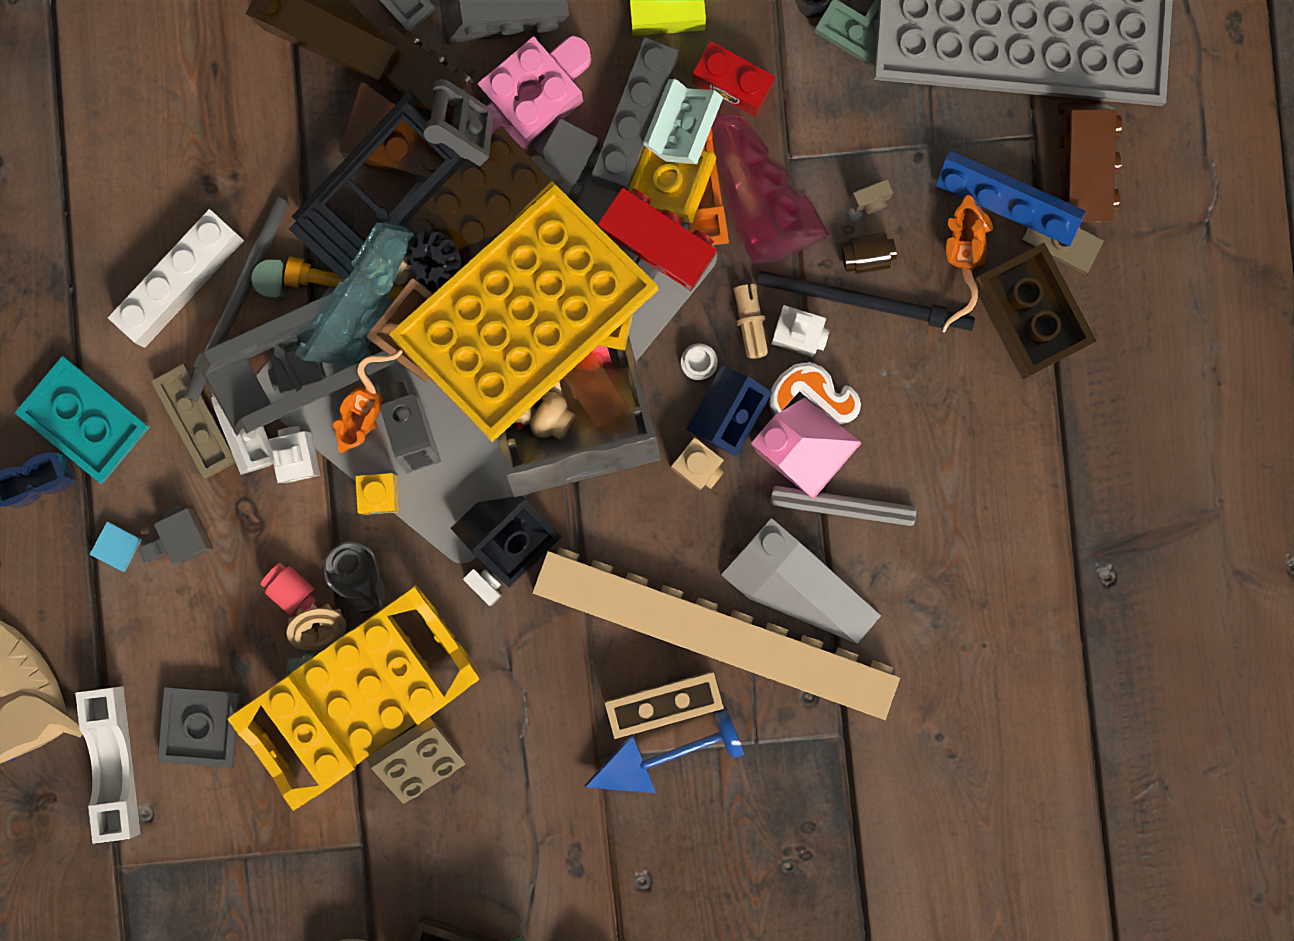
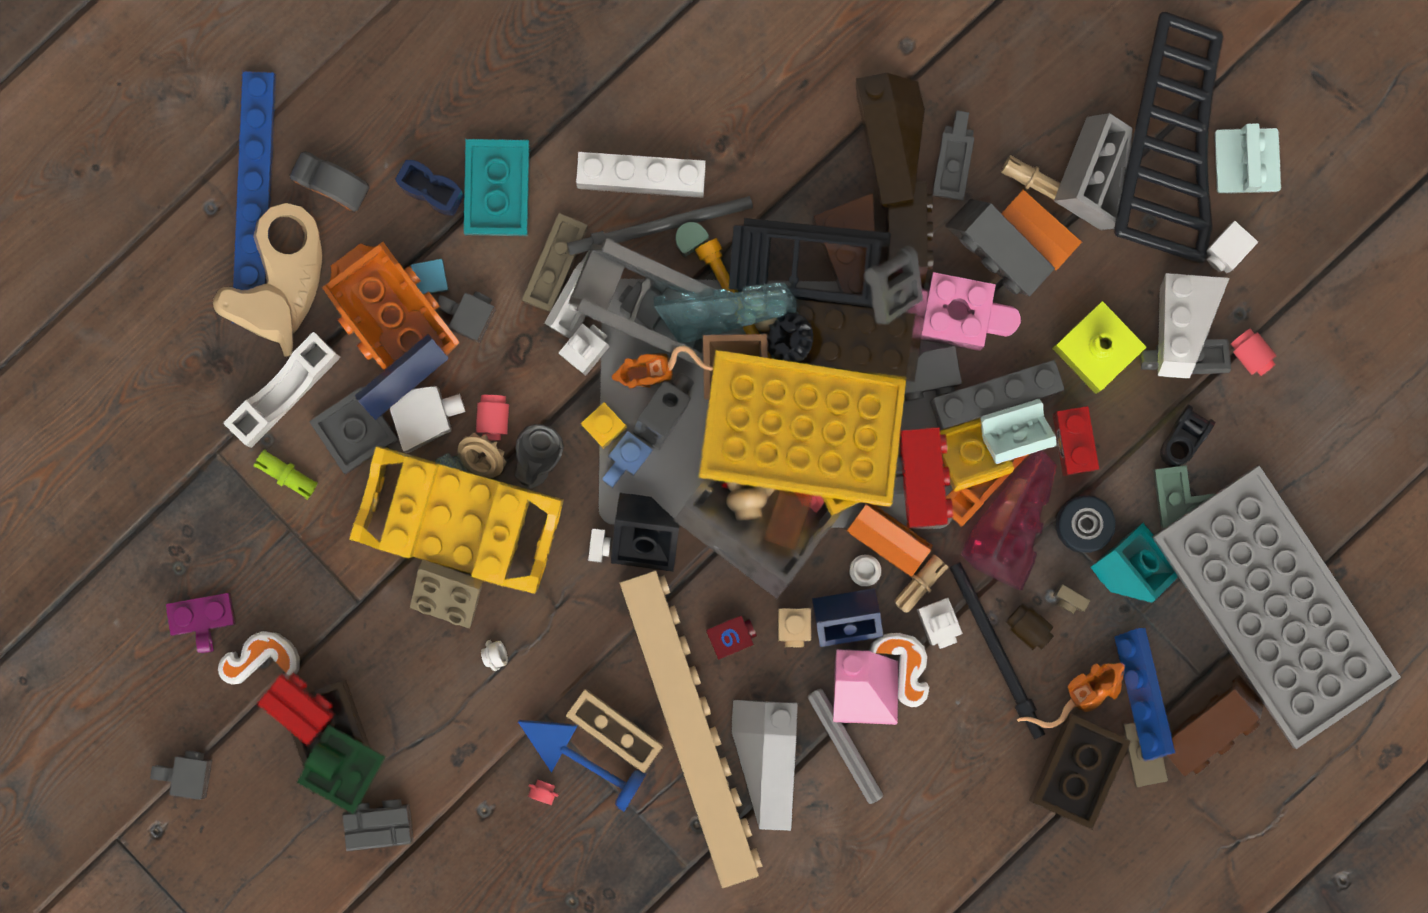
camera: 50 degrees right, 0 degrees up
(117, 609) = (384, 305): none -> orange slope
(182, 644) = (401, 377): none -> dark blue tile
(189, 821) = (285, 474): none -> lime pin
(235, 653) = (424, 416): none -> white torso
(424, 494) = (628, 456): none -> medium blue plate
(508, 760) = (494, 655): none -> white plate
(663, 530) = (731, 636): none -> dark red brick
(668, 815) = (542, 792): none -> coral plate
(687, 317) = (889, 538): none -> orange piece
(812, 142) = (1076, 529): none -> black wheel
(889, 116) = (1135, 567): none -> teal slope

